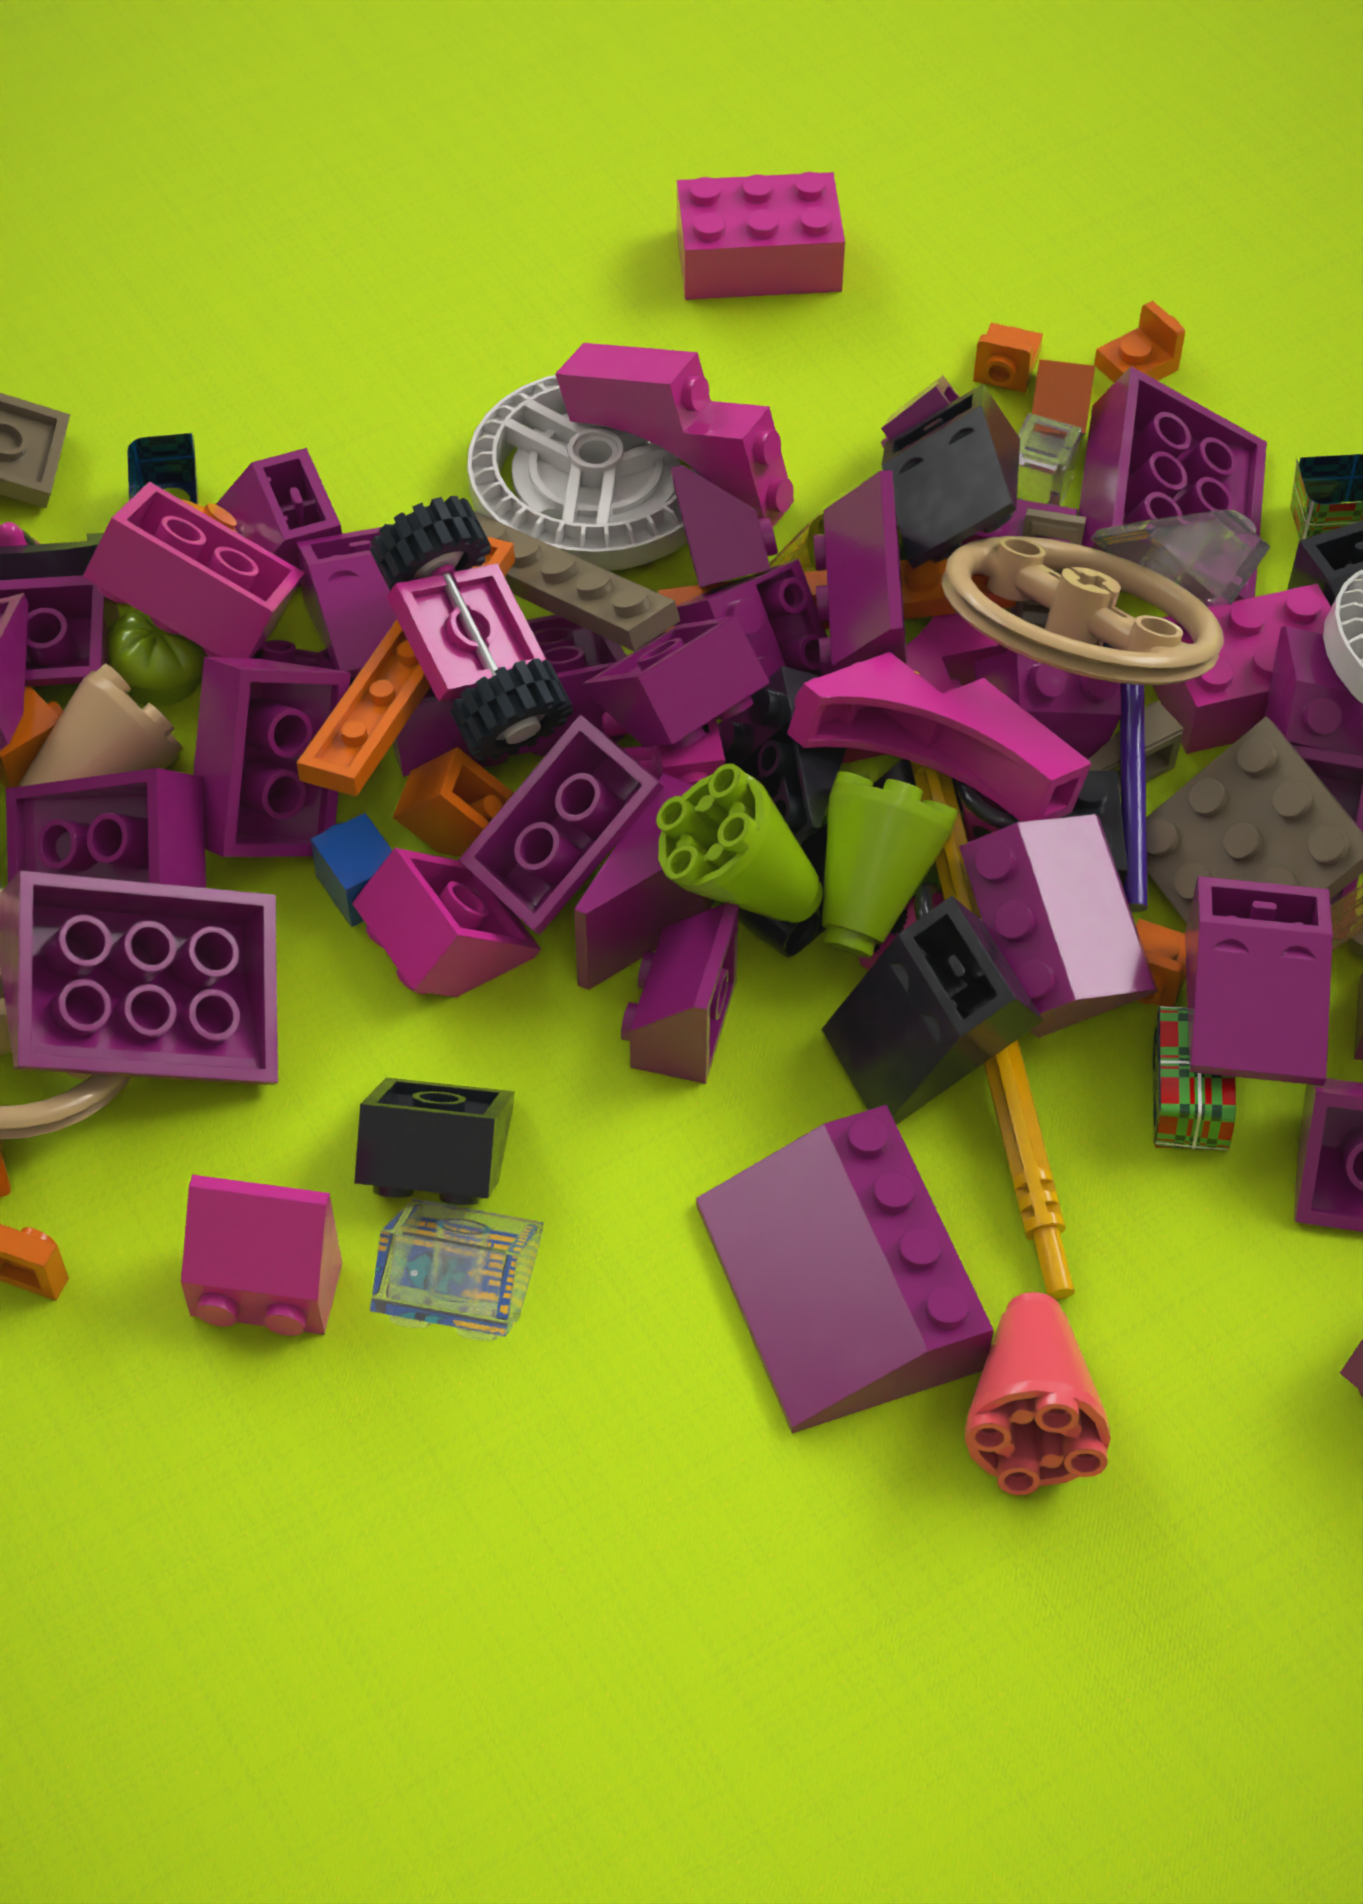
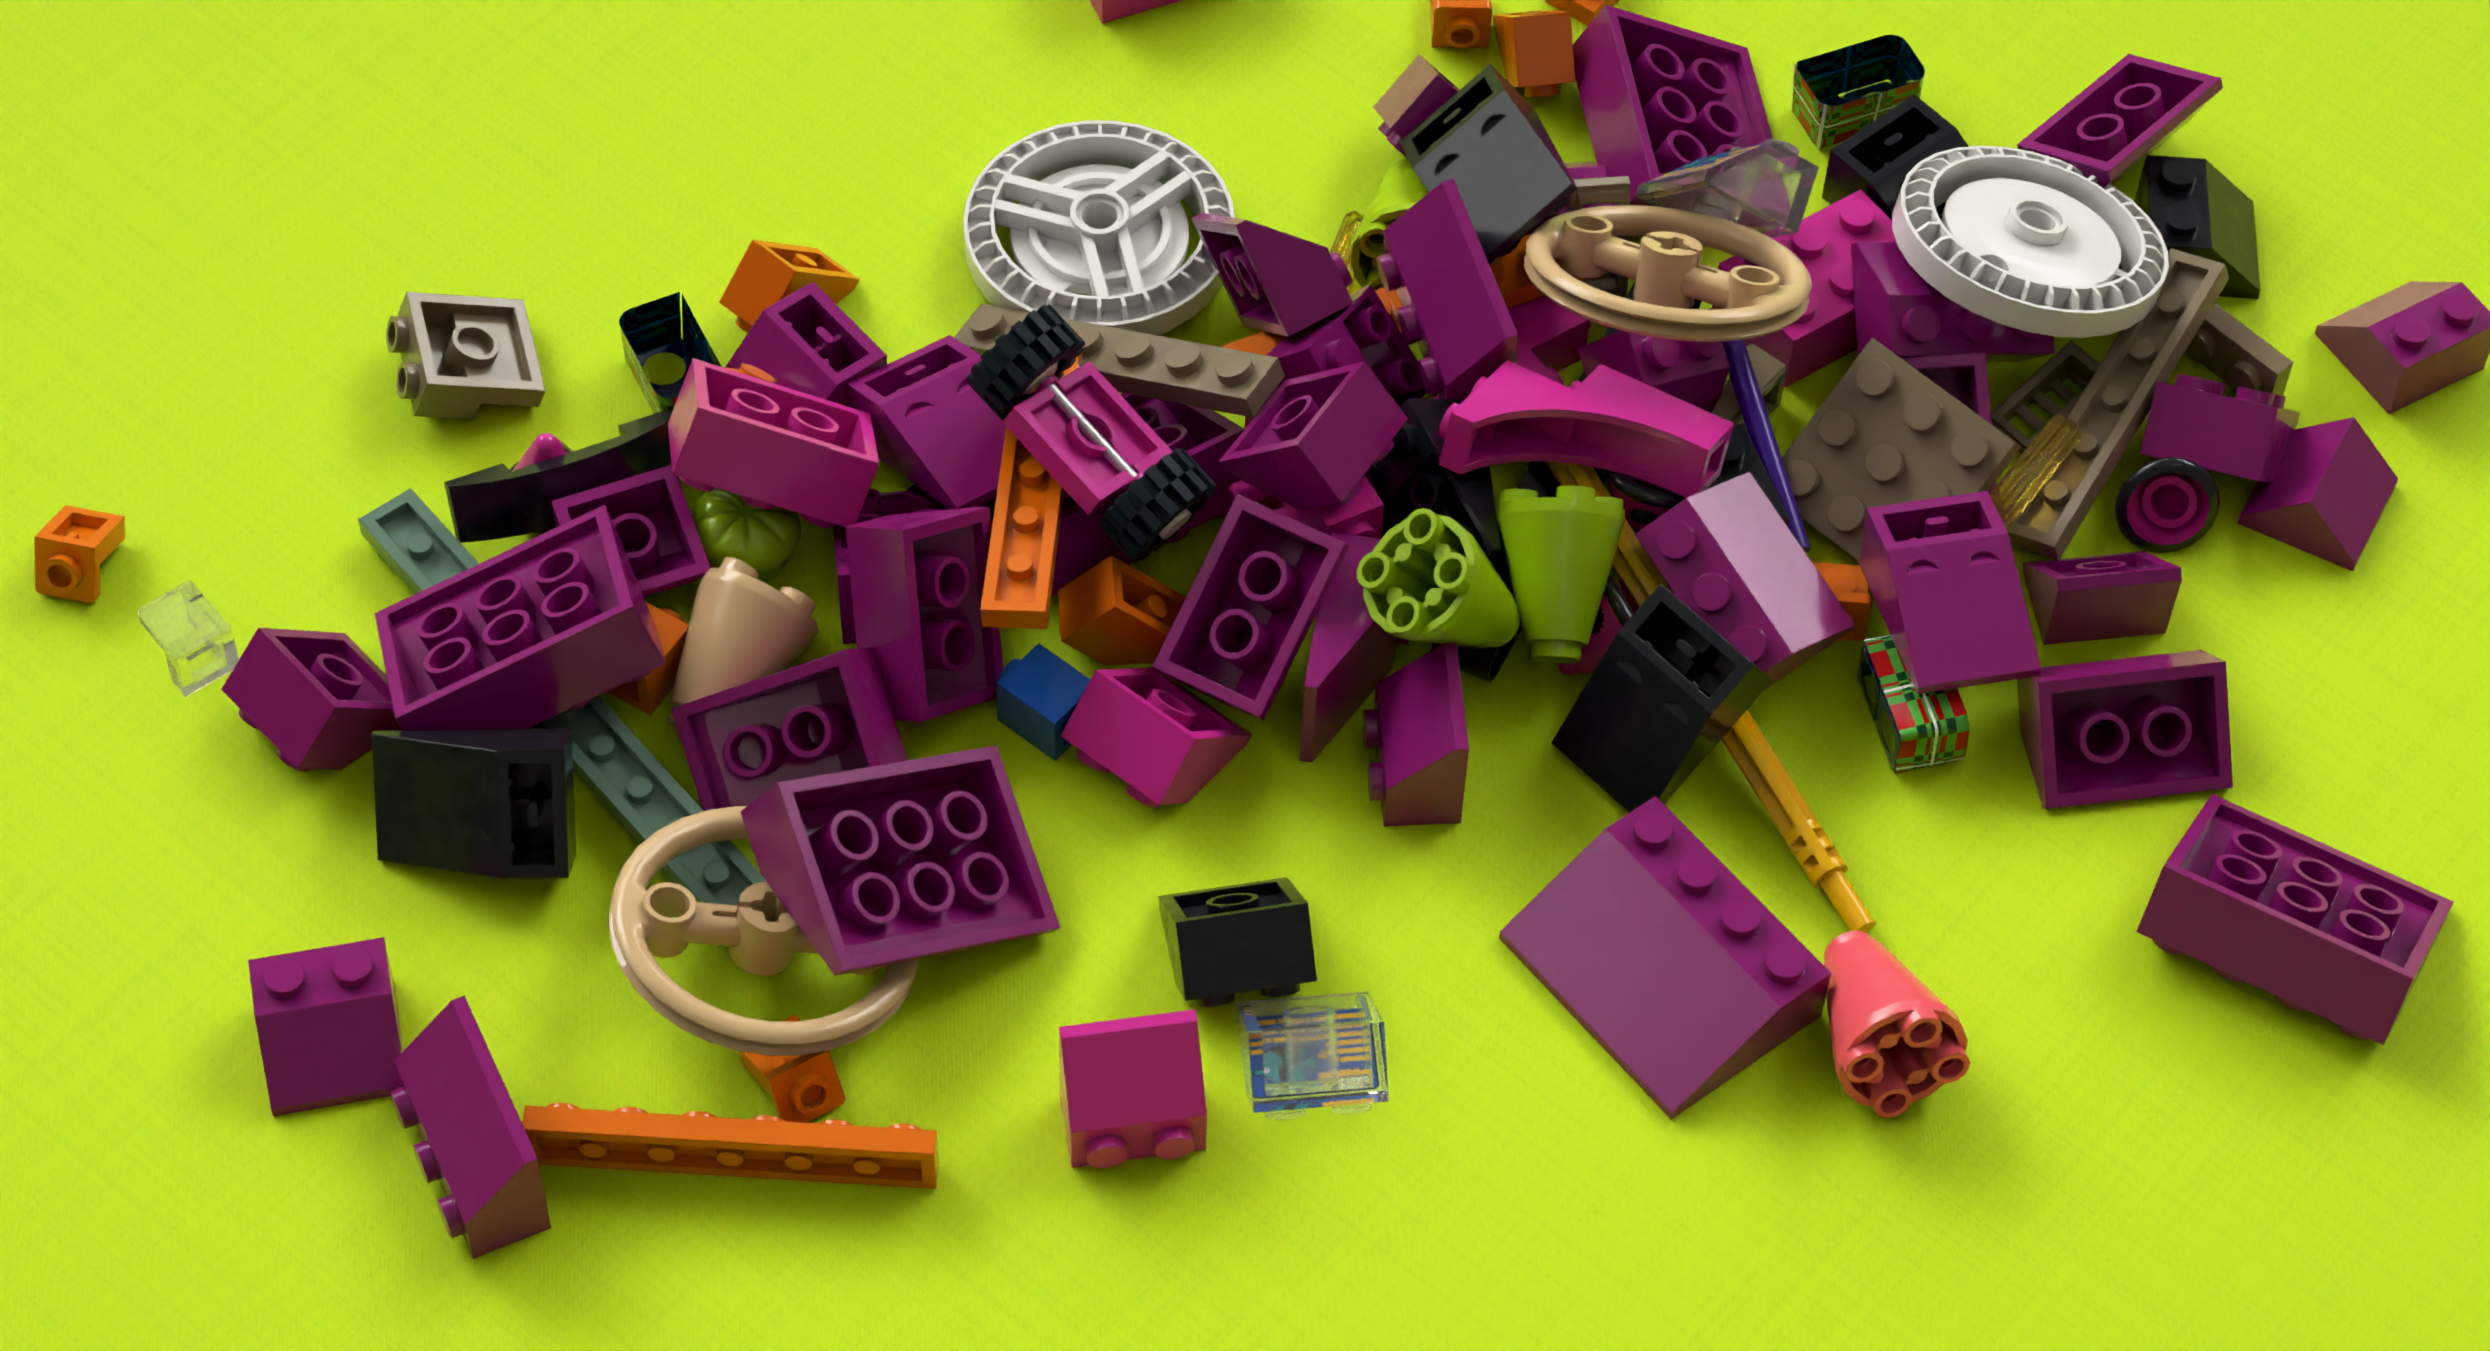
camera: 20 degrees left, 0 degrees up
(284, 430) = (777, 270): none -> orange slope
(669, 404) = (1169, 150): dark pink arch -> none
(1046, 459) = (1556, 107): clear panel -> none

